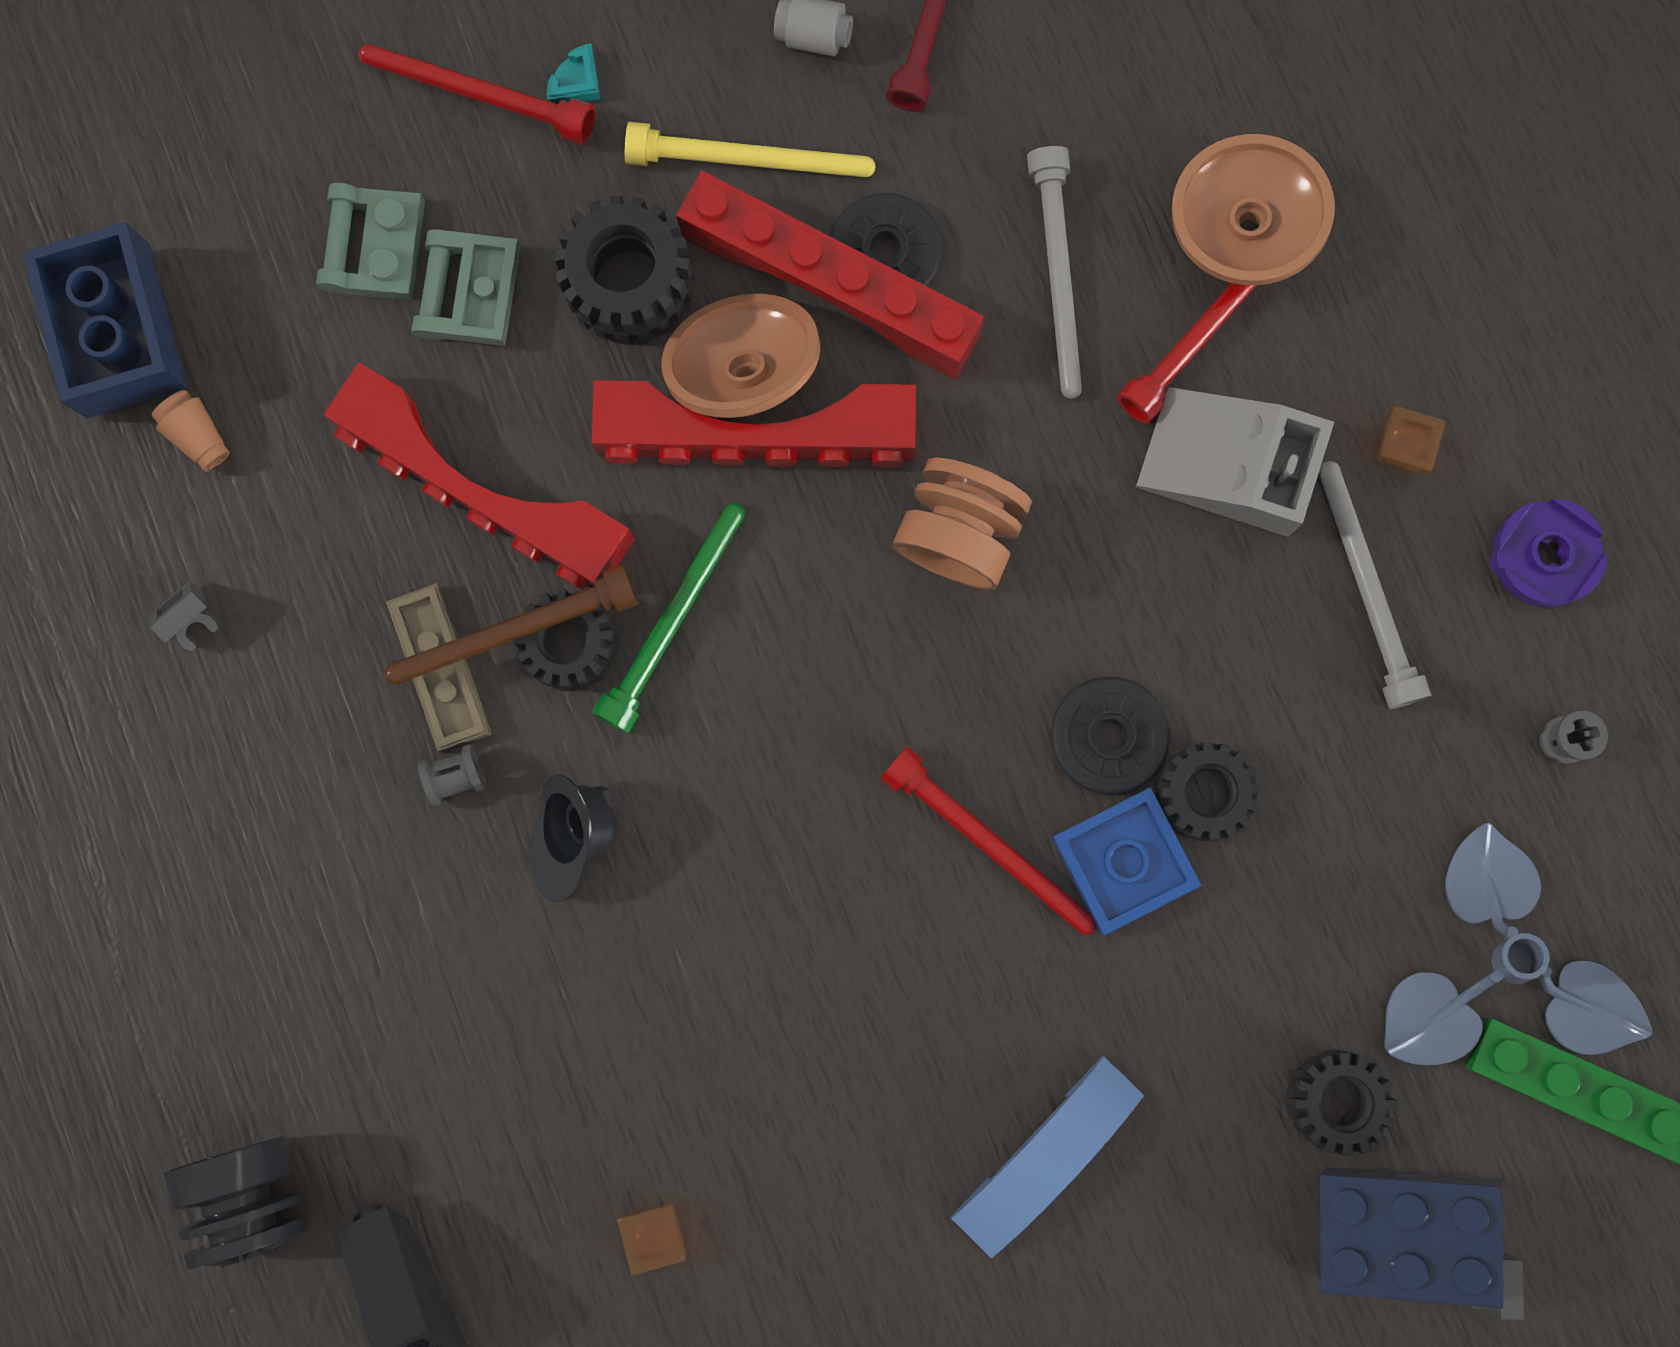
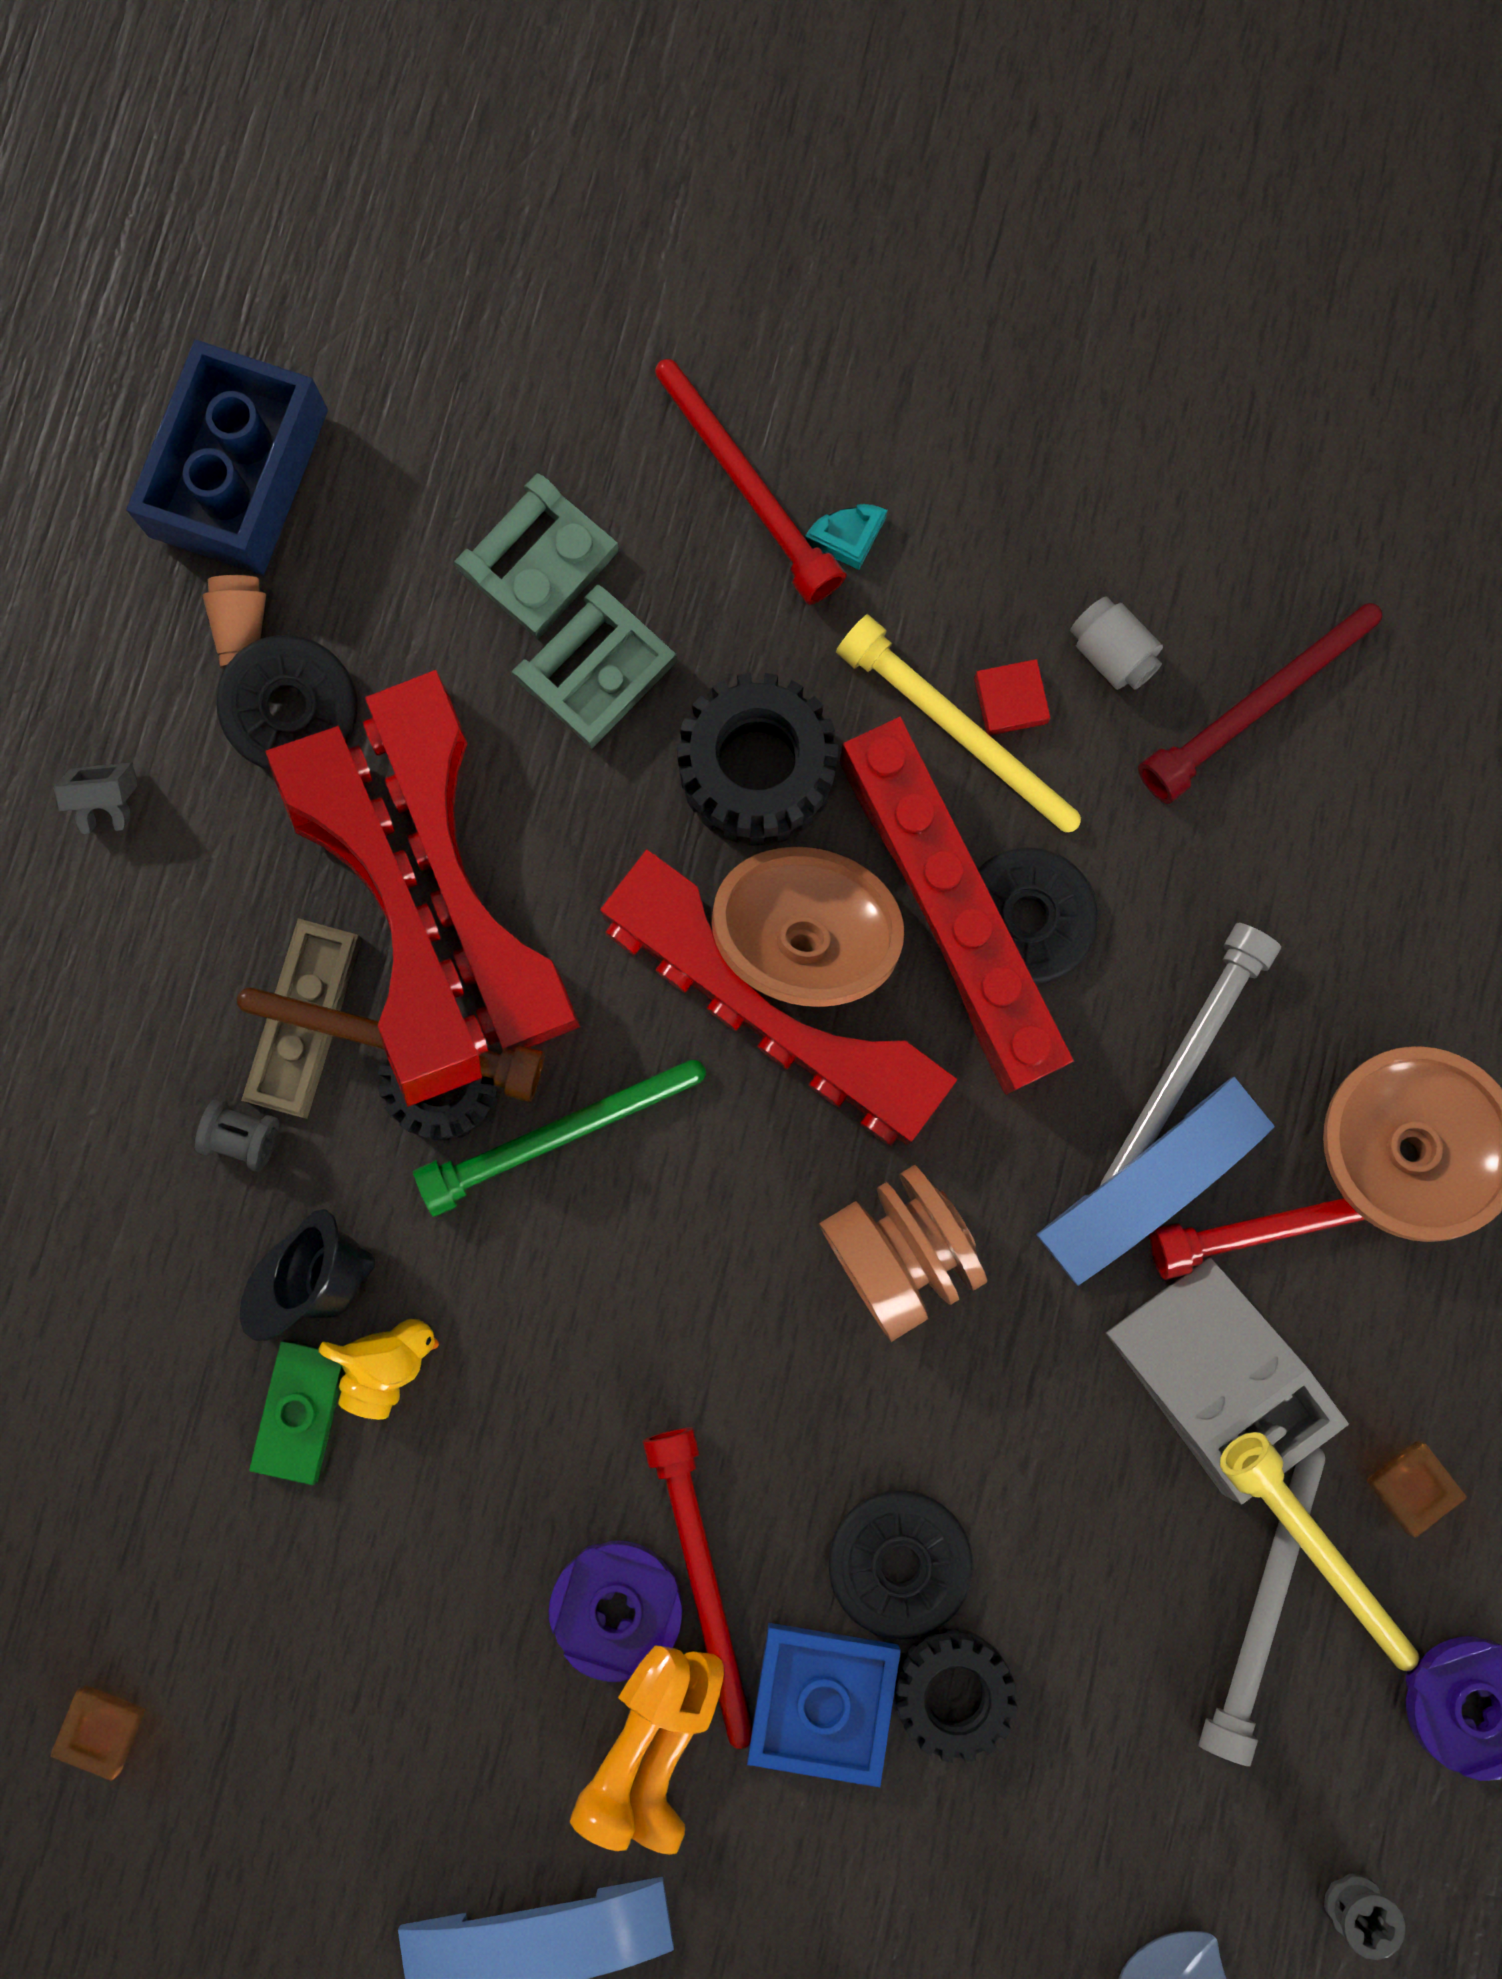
camera: 30 degrees right, 0 degrees up
(270, 428) = (274, 664): none -> black wheel
(353, 506) = (421, 1023): none -> red arch
(631, 930) = (297, 1414): none -> green plate
(665, 856) = (380, 1366): none -> yellow animal
(767, 111) = (1012, 697): none -> red tile
(971, 916) = (582, 1628): none -> dark purple plate
(1024, 930) = (627, 1798): none -> light orange piece
(1097, 365) = (1156, 1182): none -> medium blue slope
(1294, 490) = (1257, 1470): none -> light yellow piece

